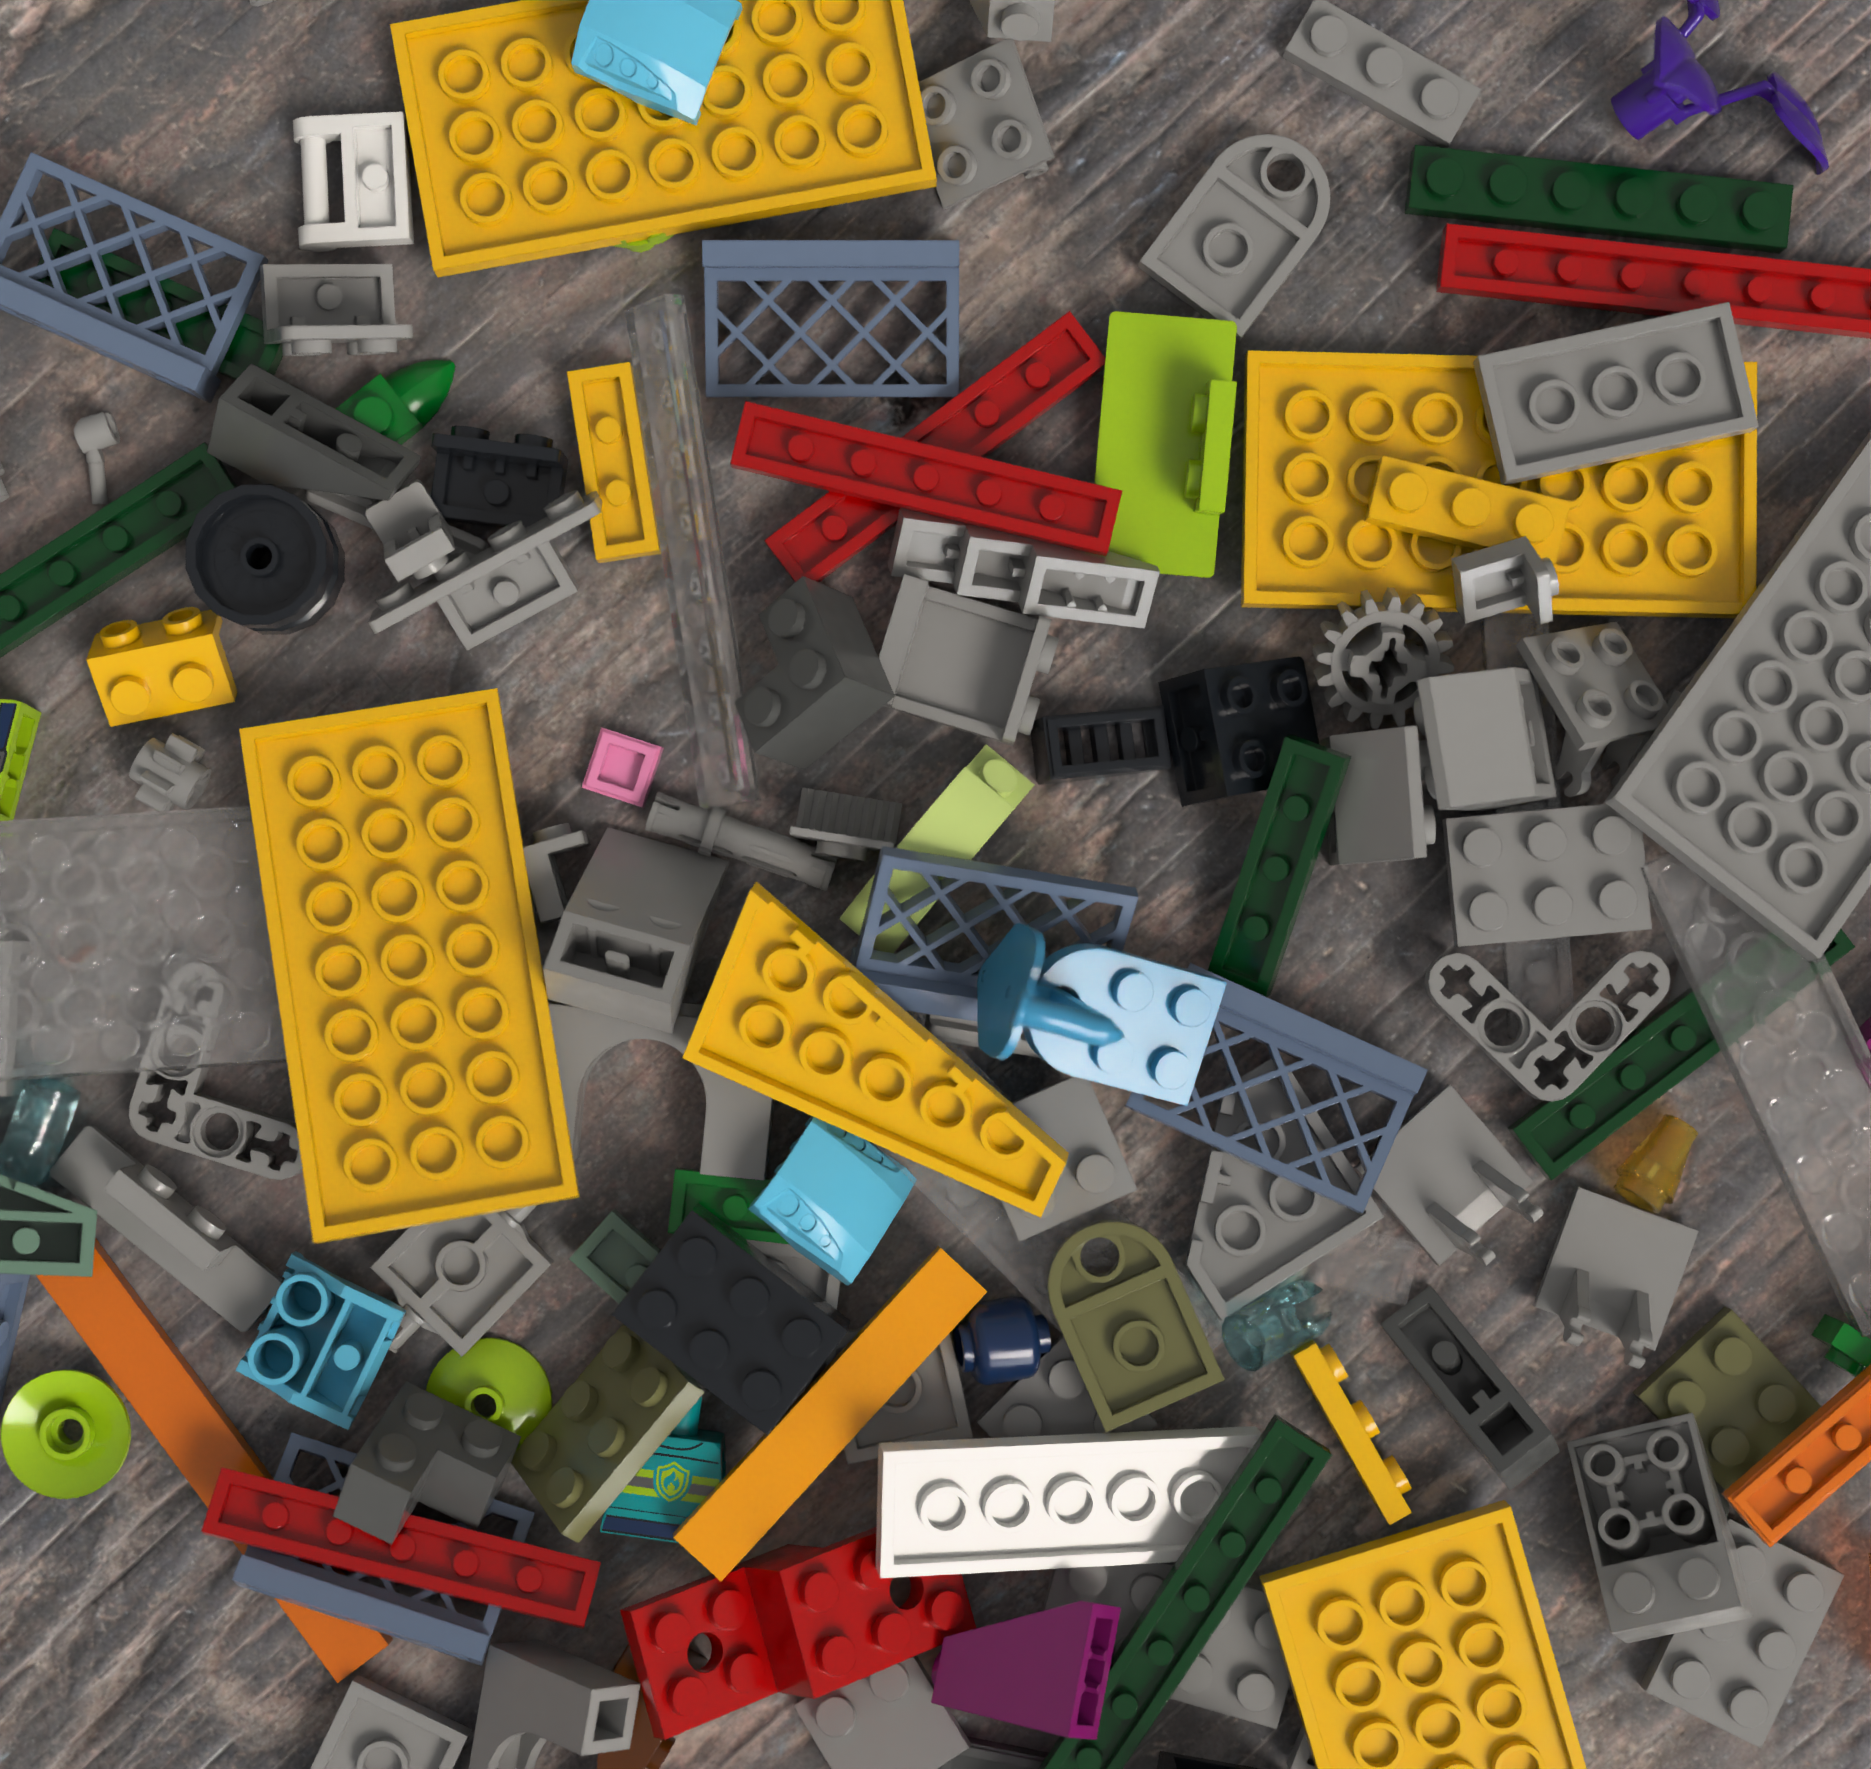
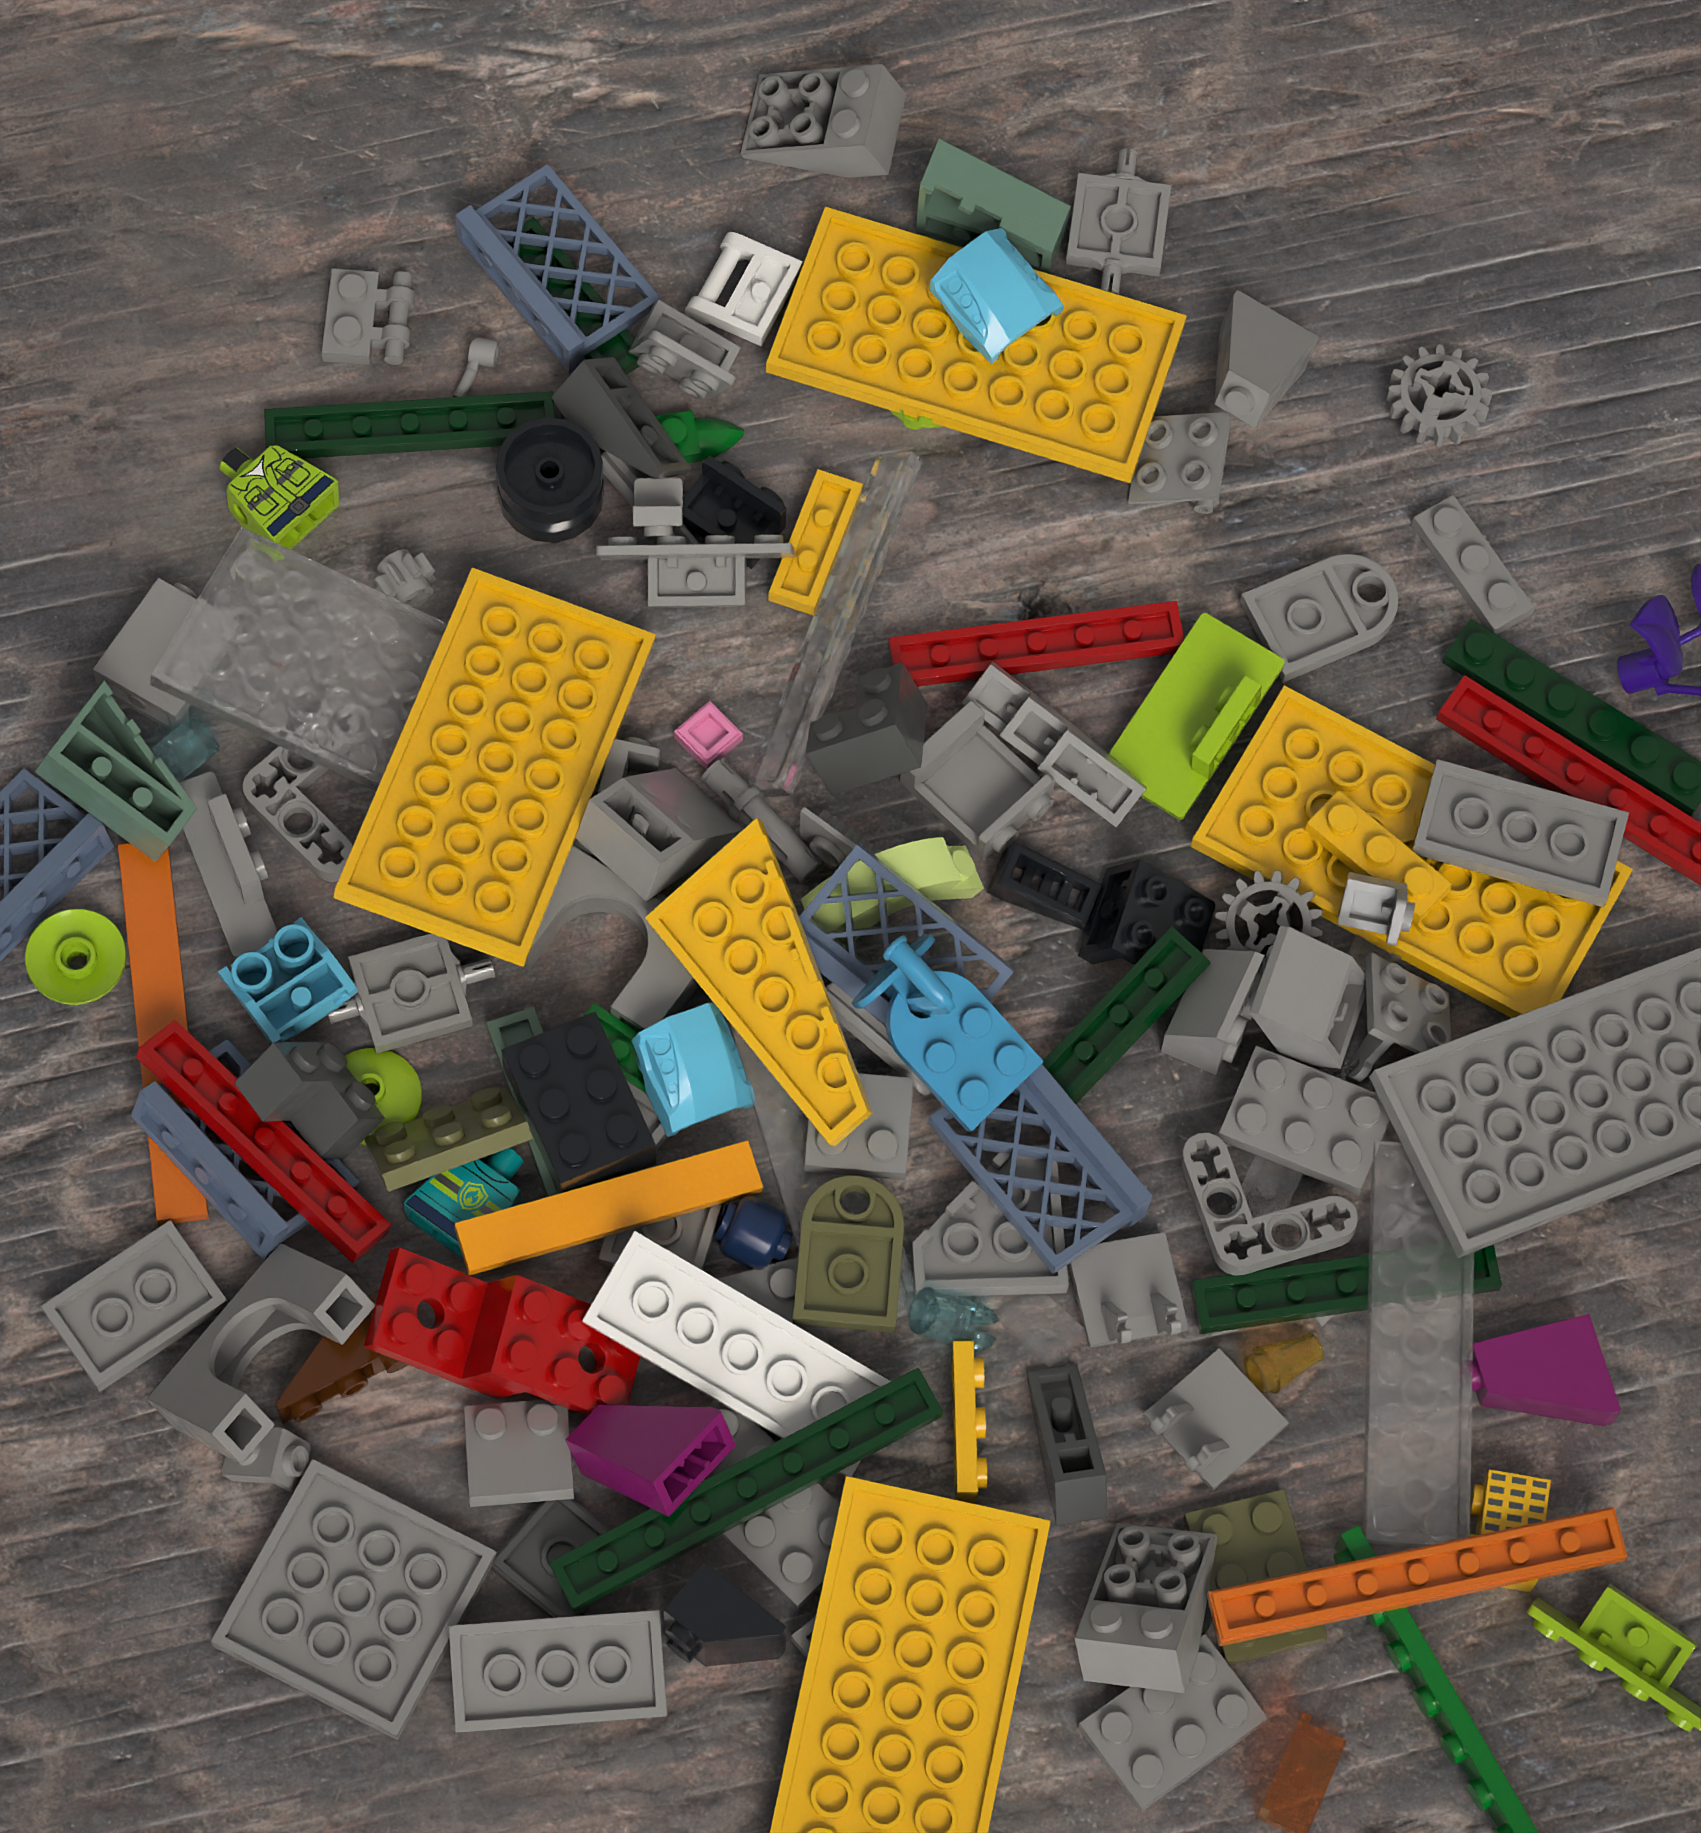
camera: 25 degrees right, 20 degrees down
(161, 666) = (438, 514): yellow bracket -> none
(830, 262) = (1033, 490): sand blue fence -> none
(926, 478) = (1020, 650): red plate -> none

